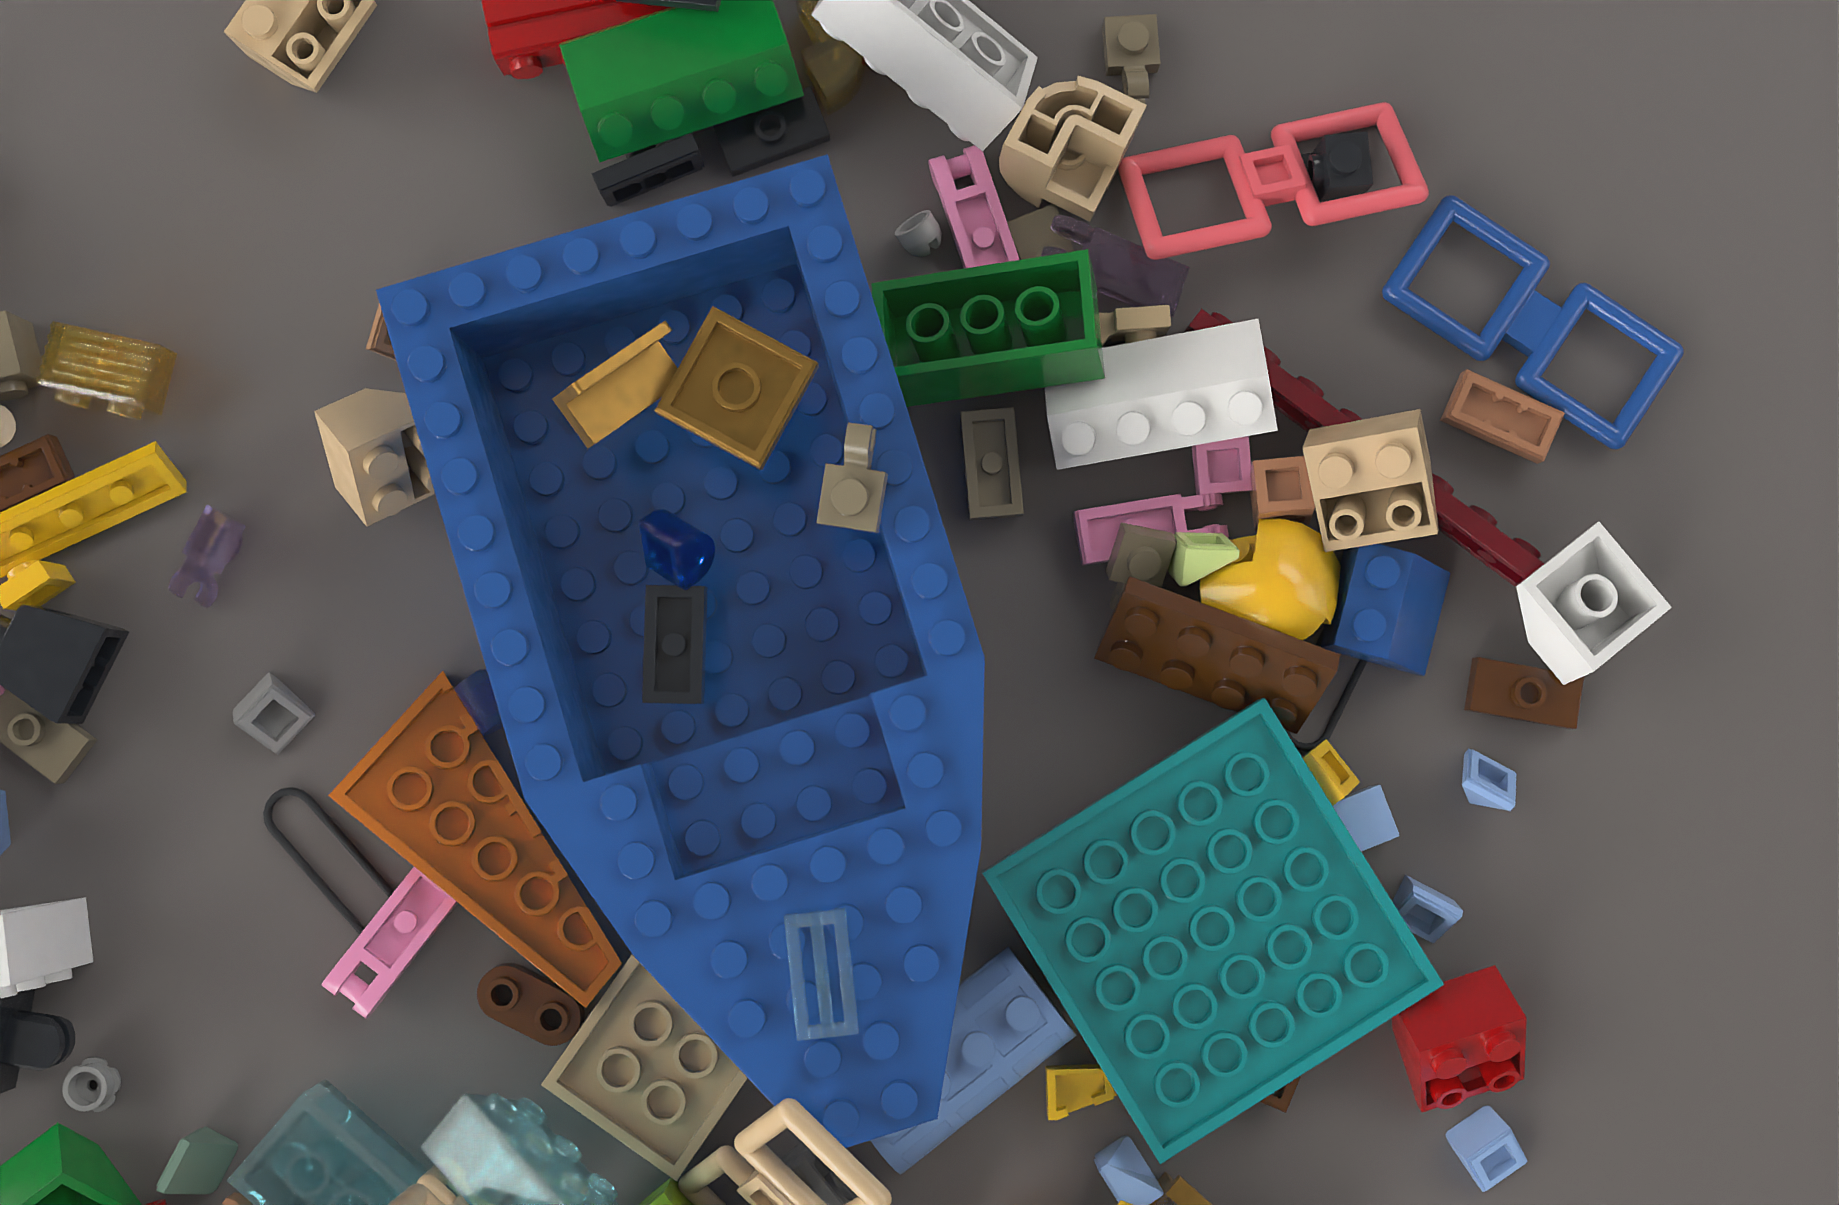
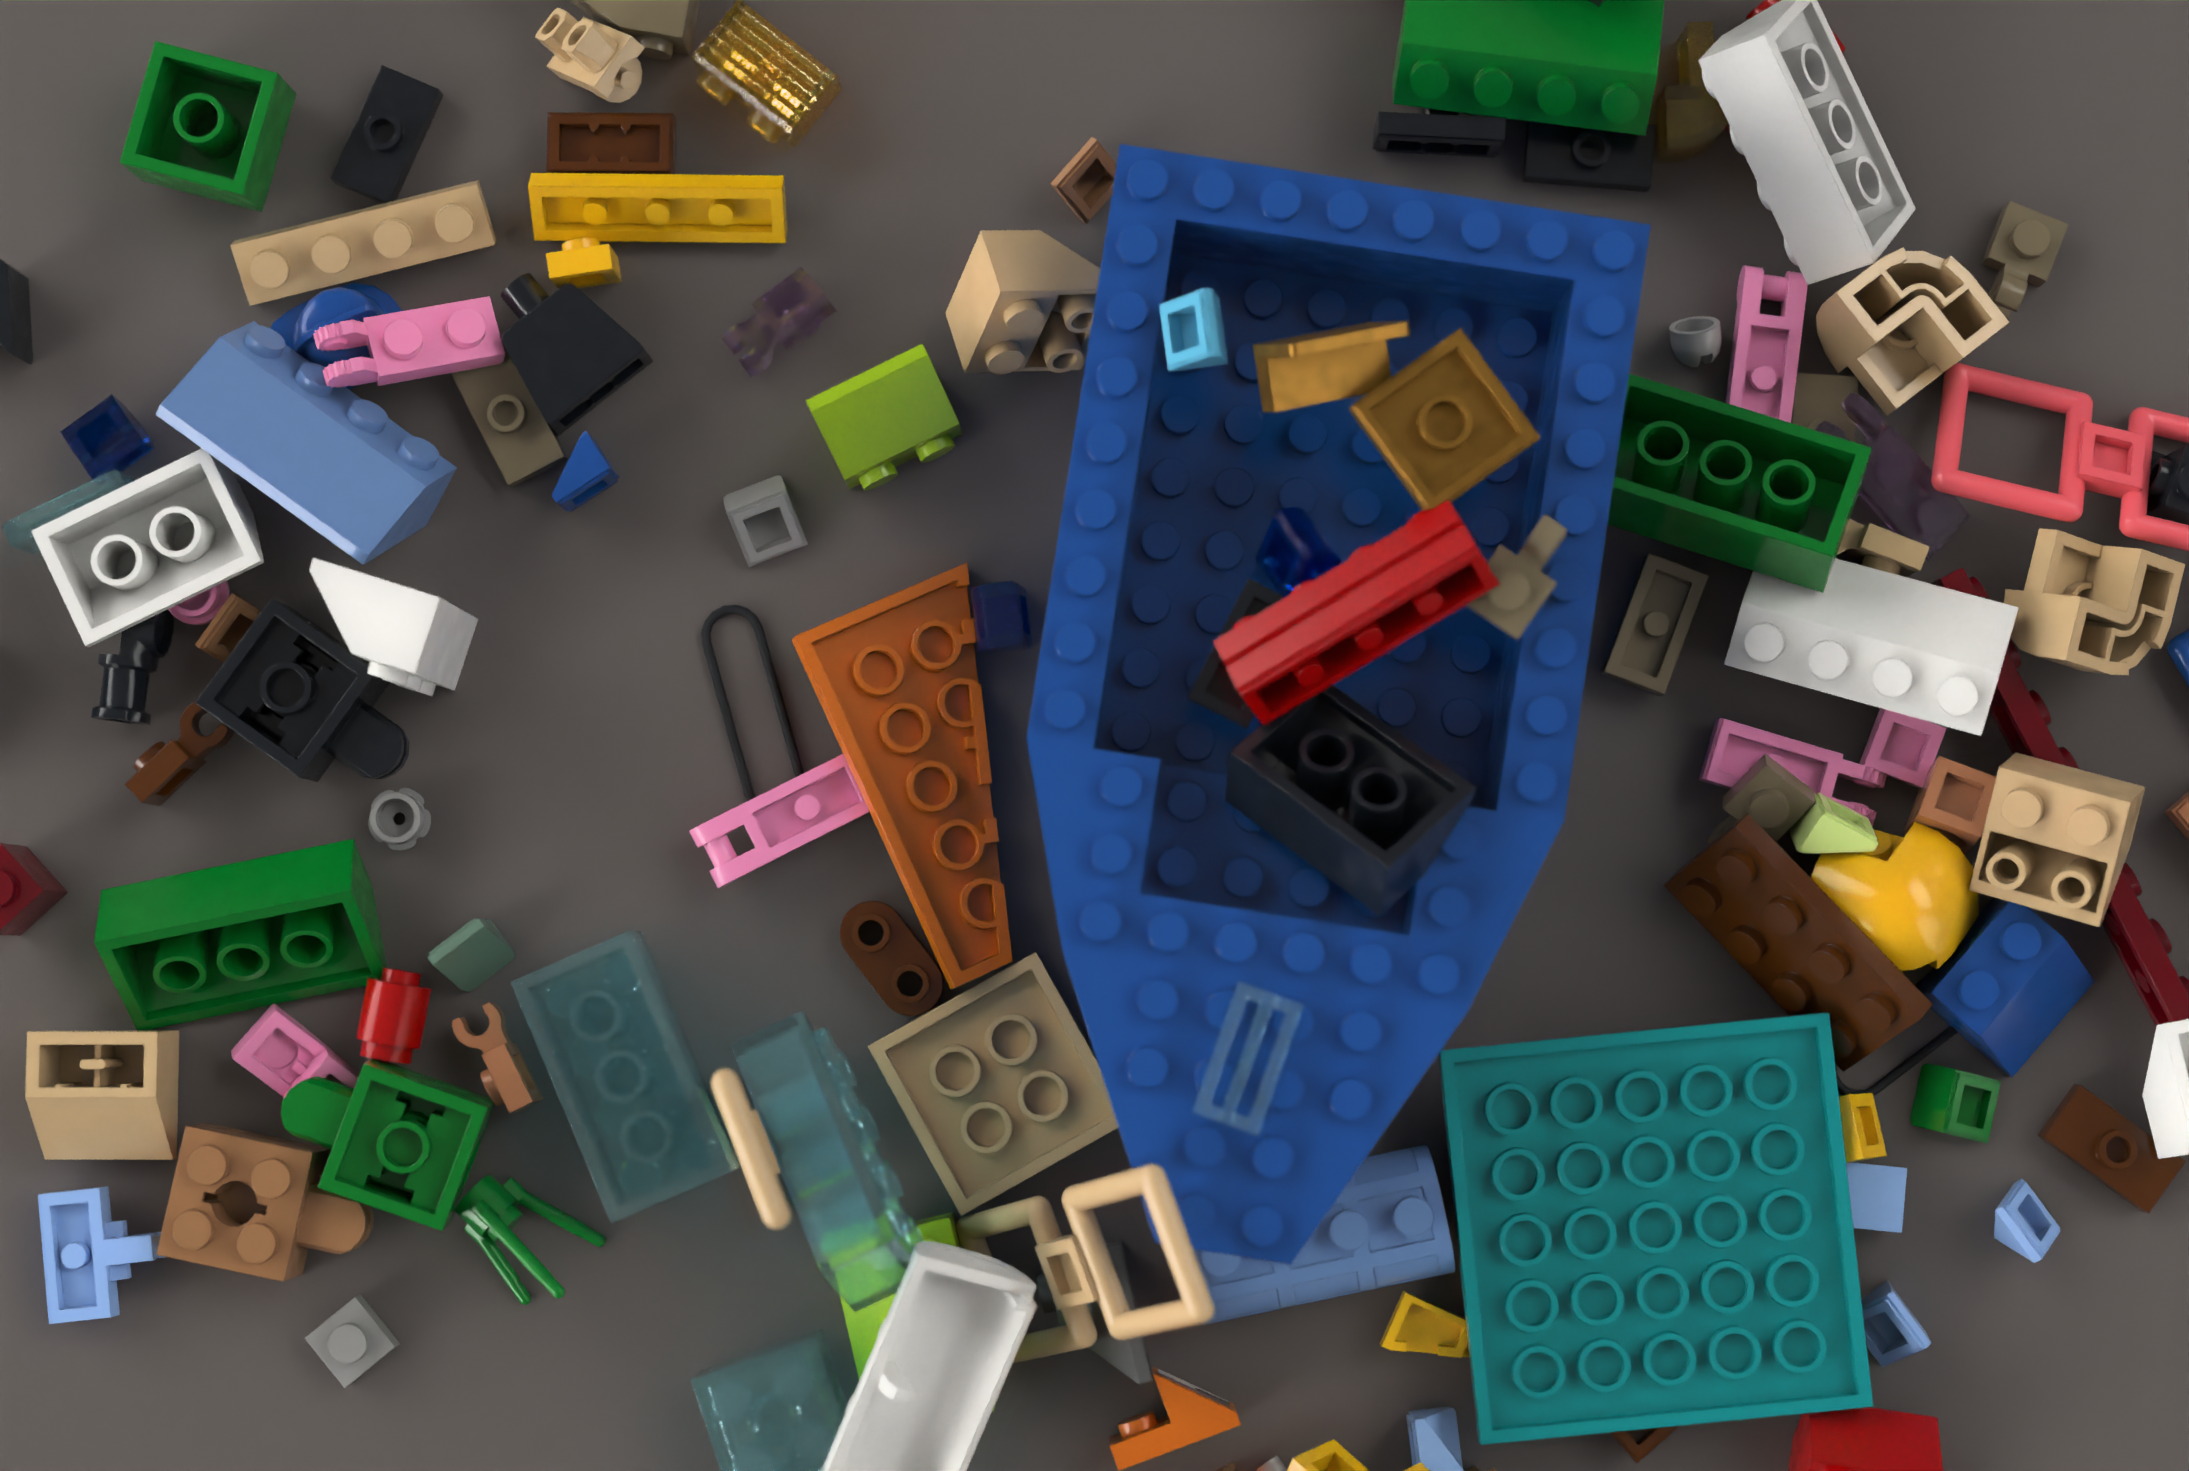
camera: 35 degrees right, 0 degrees up
(109, 747) = (584, 475): none -> blue slope
(319, 591) = (886, 419): none -> lime slope
(502, 409) = (1193, 331): none -> medium azure slope
(735, 574) = (1355, 612): none -> red brick
(802, 719) = (1348, 795): none -> black slope
(1313, 288) = (2094, 603): none -> tan brick
(1391, 716) = (1955, 1102): none -> green slope

